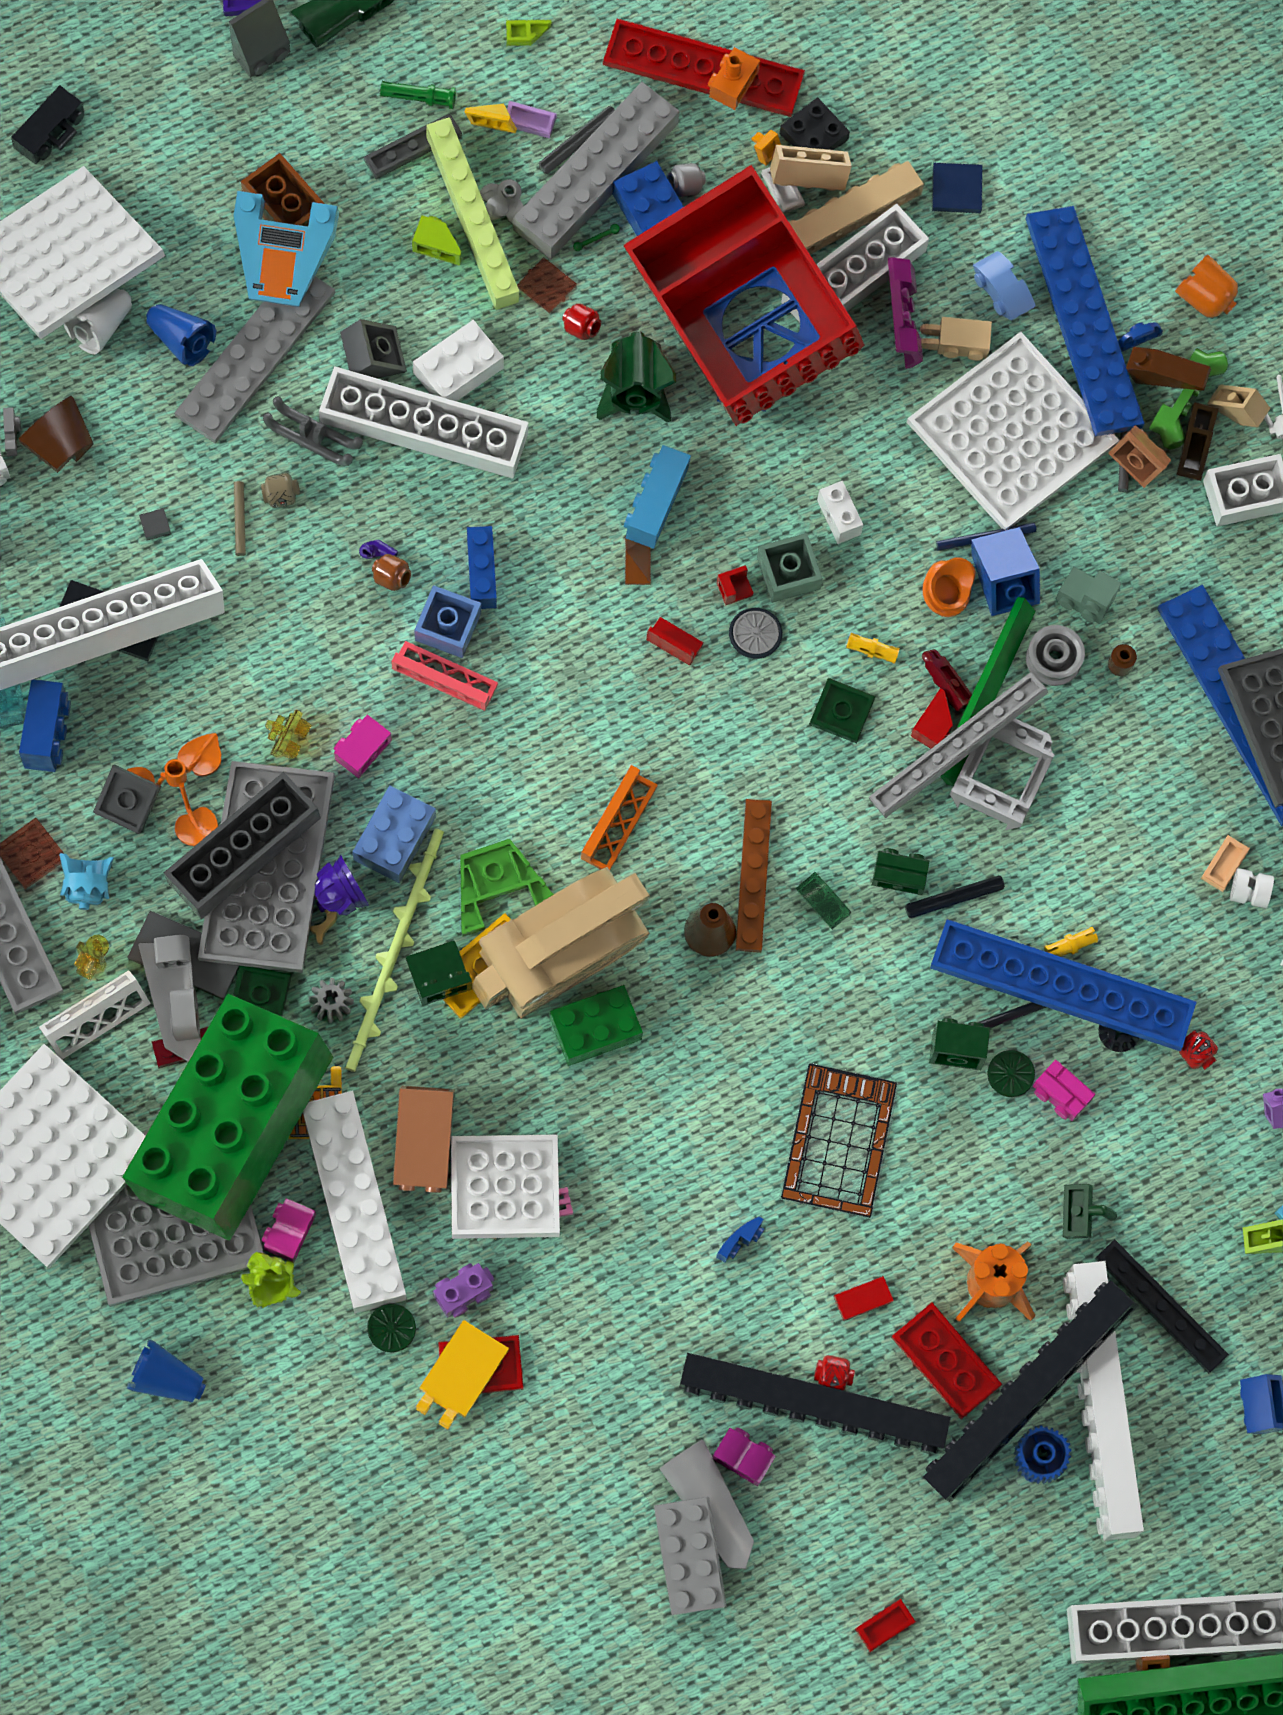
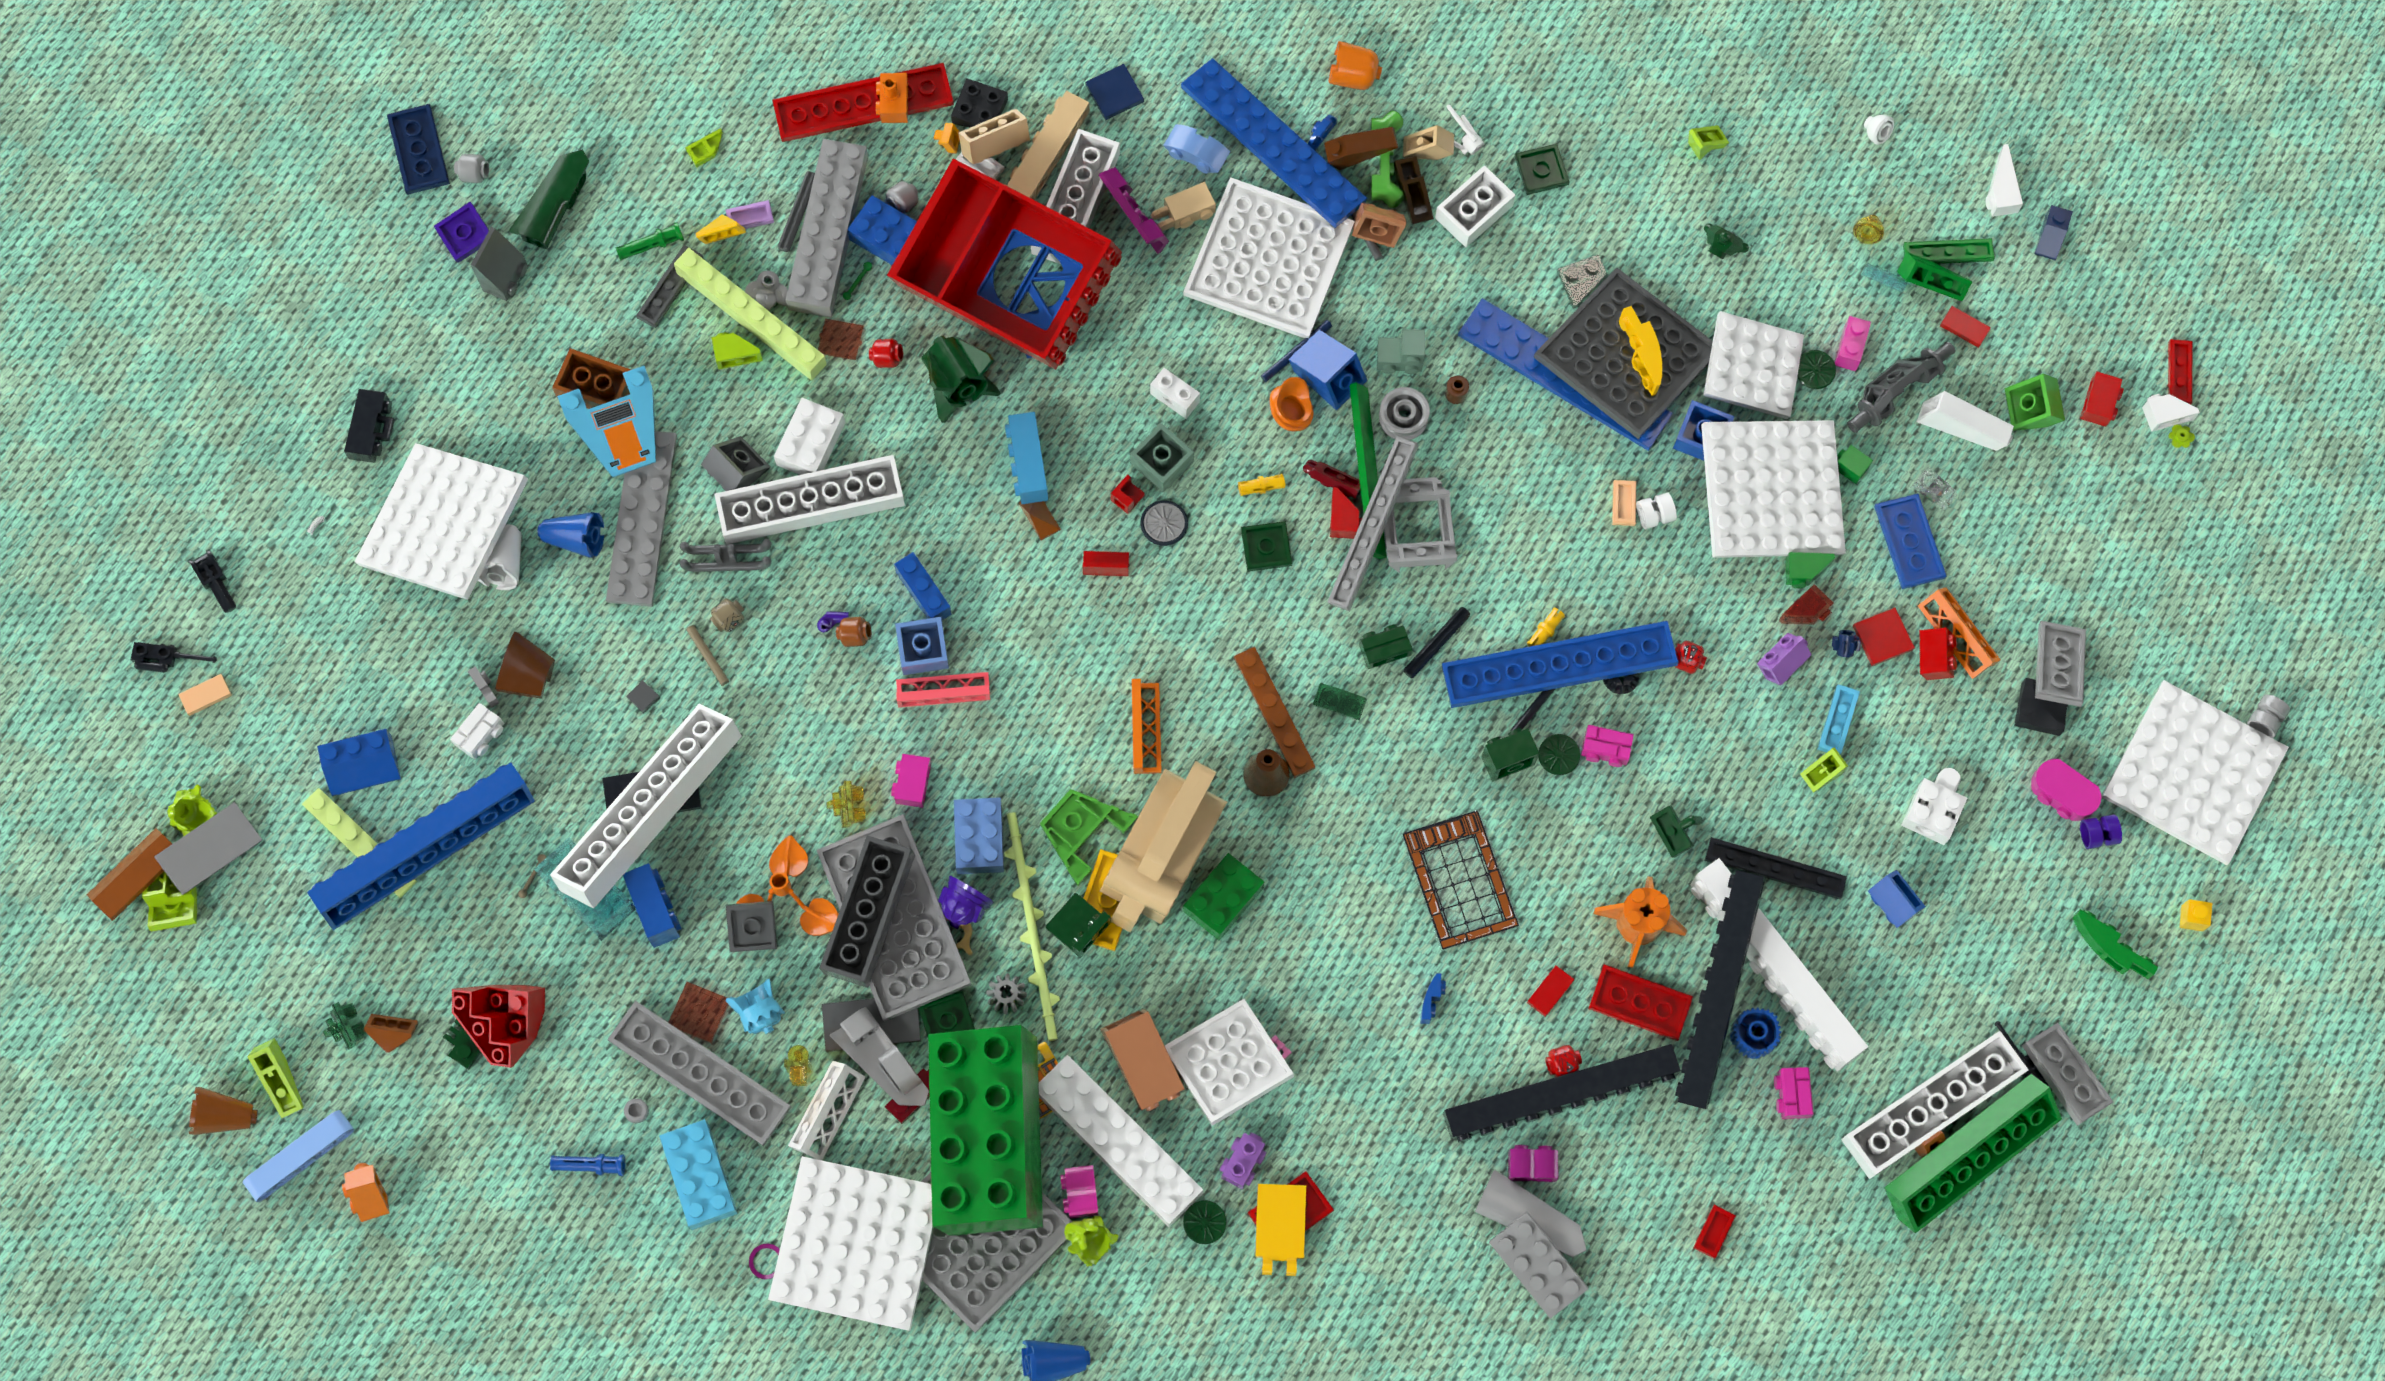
camera: 25 degrees left, 0 degrees up
(1046, 1536) = (1794, 1093): none -> dark pink brick

